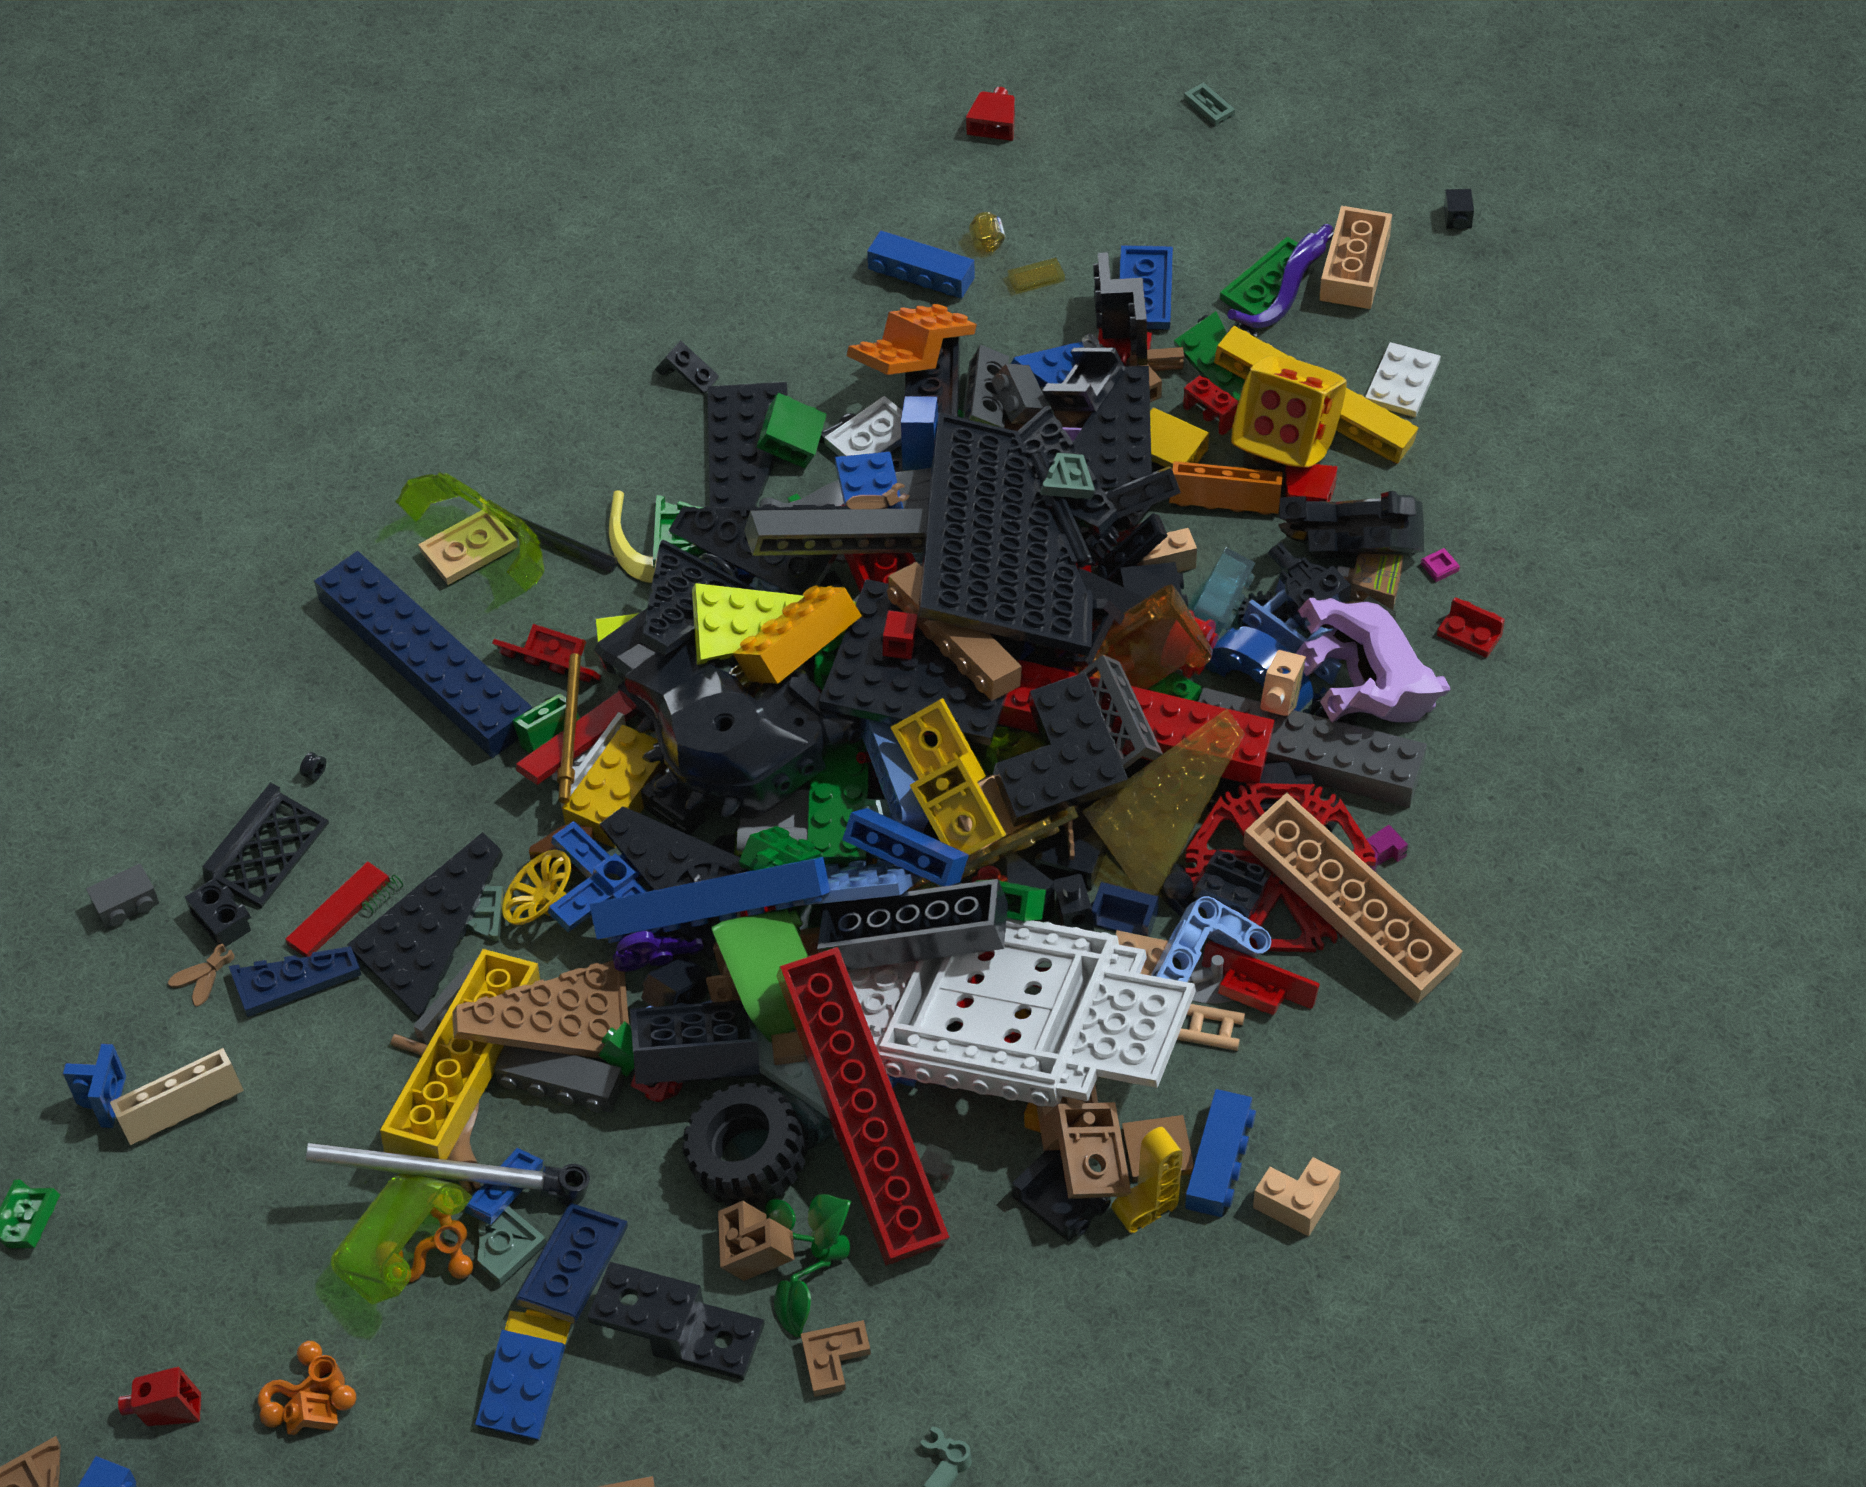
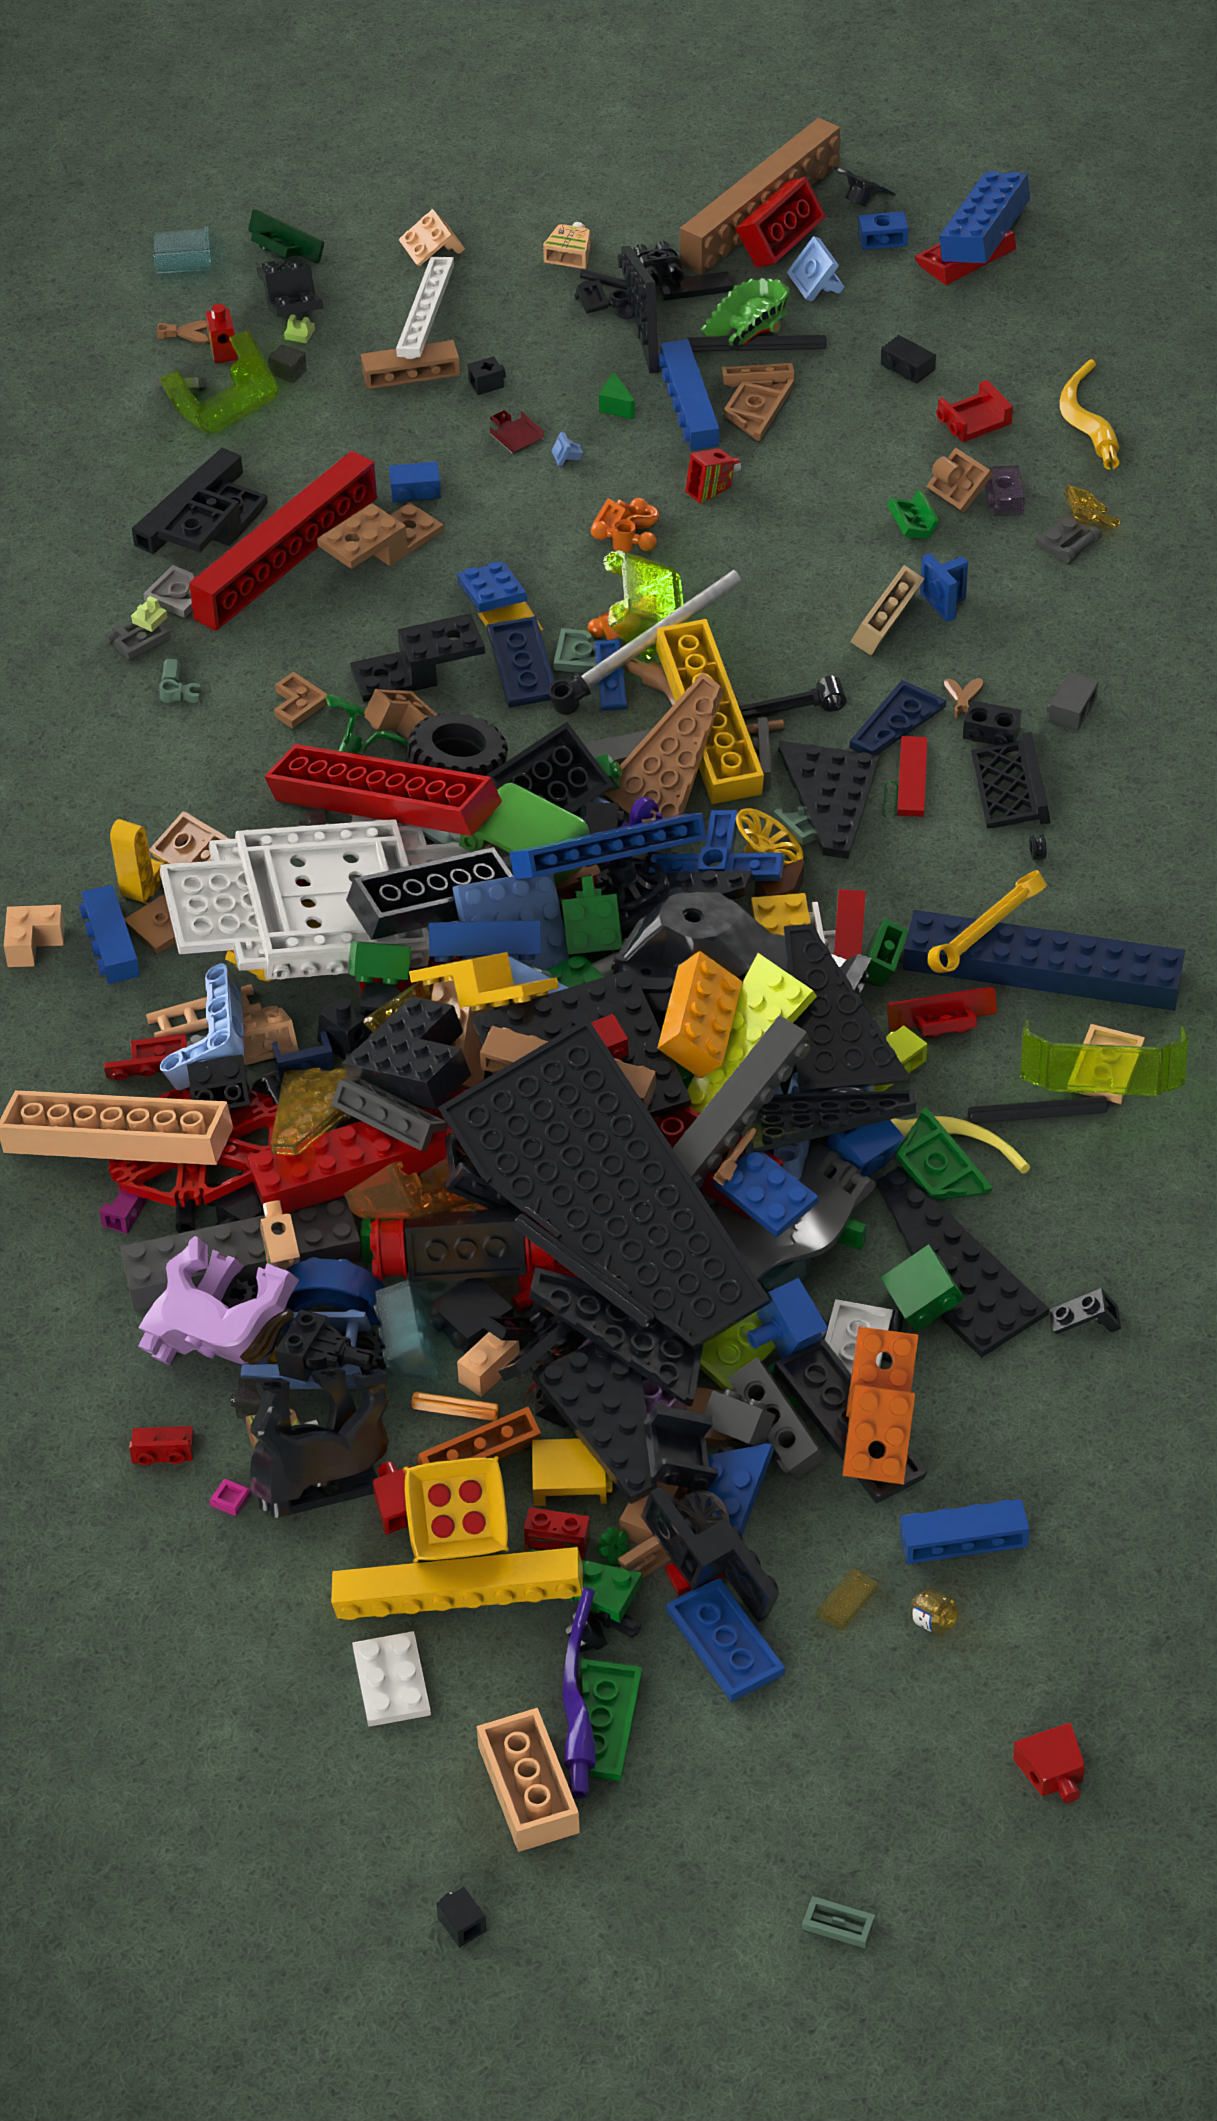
camera: 145 degrees right, 5 degrees down
(327, 1038) = (827, 694): none -> black piece
(506, 665) = (1025, 888): none -> yellow piece
(566, 773) = (822, 907): pearl gold bar -> none
(1068, 478) = (597, 1293): sand green wing -> none
(1177, 381) = (612, 1545): none -> green plant
(1206, 537) = (455, 1406): none -> light orange axle

